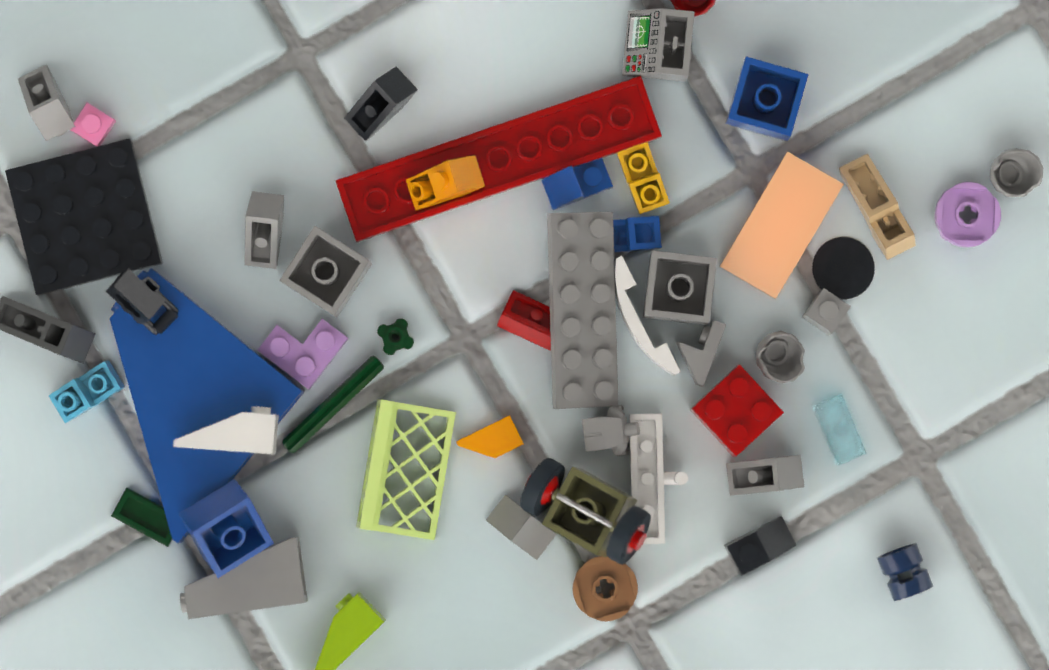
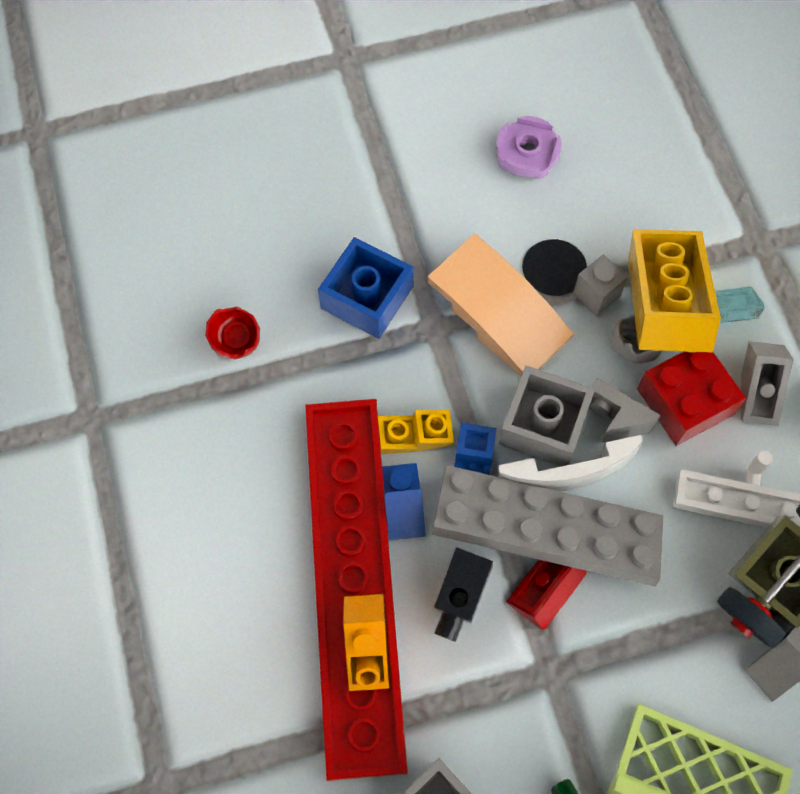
camera: 75 degrees left, 20 degrees down
(380, 103) = (249, 700): black slope -> none
(391, 345) = (528, 765): dark green plate -> none
(493, 439) = (678, 666): light orange tile -> none
(519, 250) = (468, 575): none -> black torso
(609, 432) = (693, 529): light grey piece -> none
(658, 44) = (277, 376): light grey slope -> none
(825, 373) = (672, 291): none -> yellow brick
(878, 206) = (503, 215): tan slope -> none
(1016, 172) = (498, 95): light grey hair -> none

